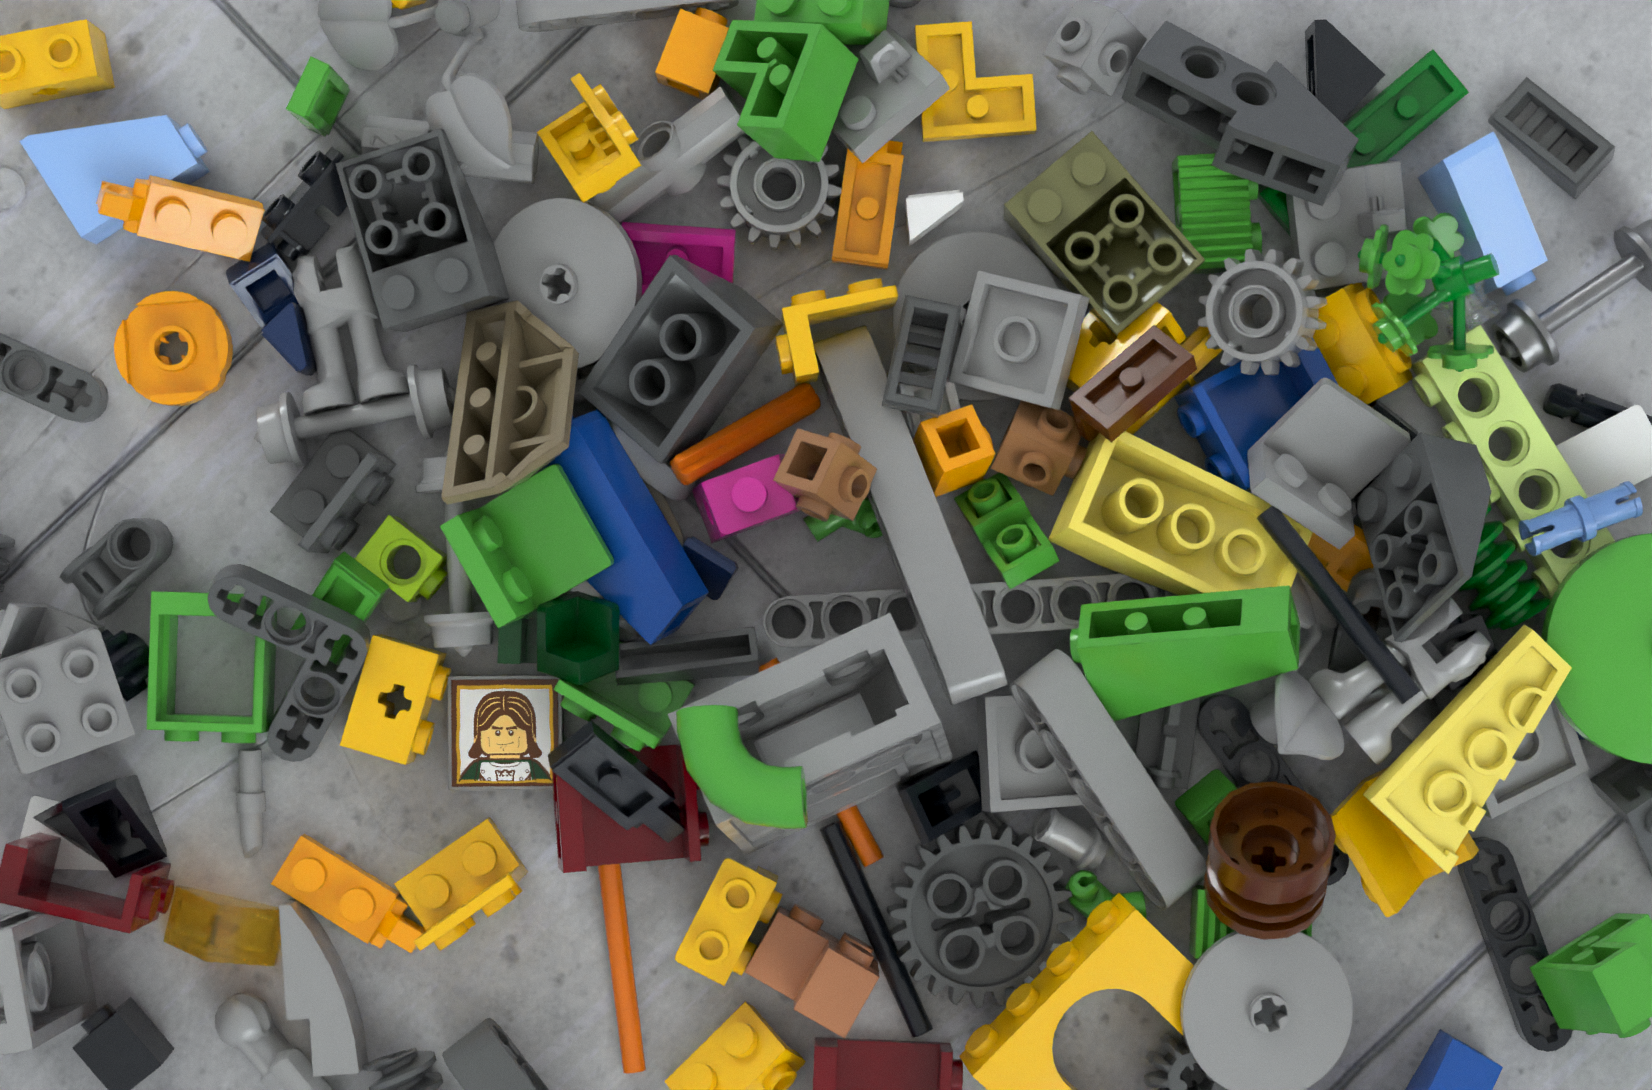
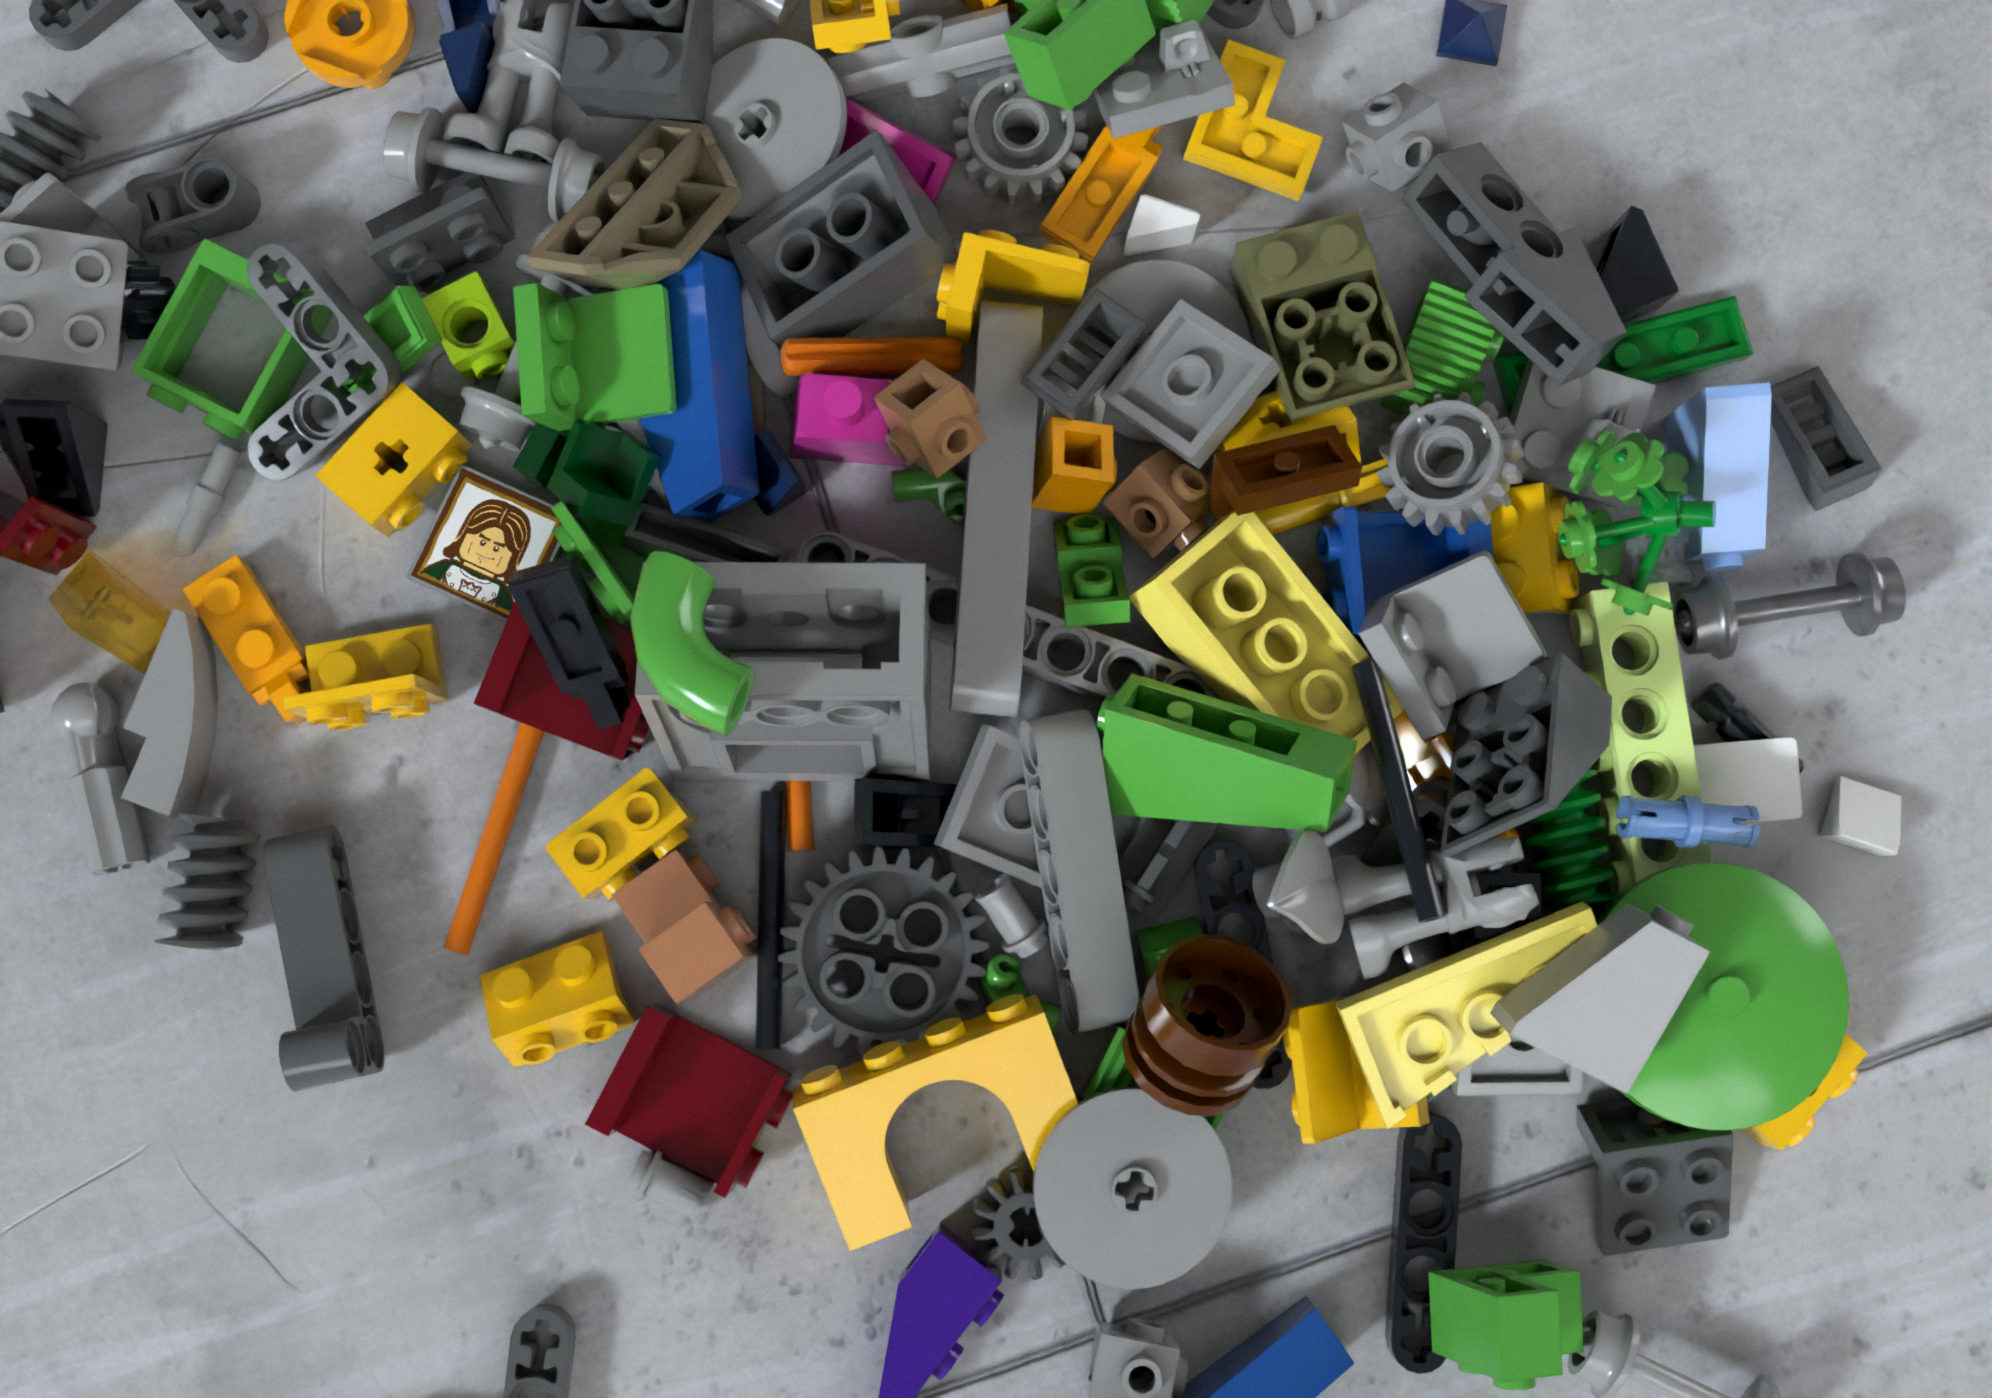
camera: 20 degrees right, 5 degrees down
(1575, 694) = (1607, 994): none -> slope

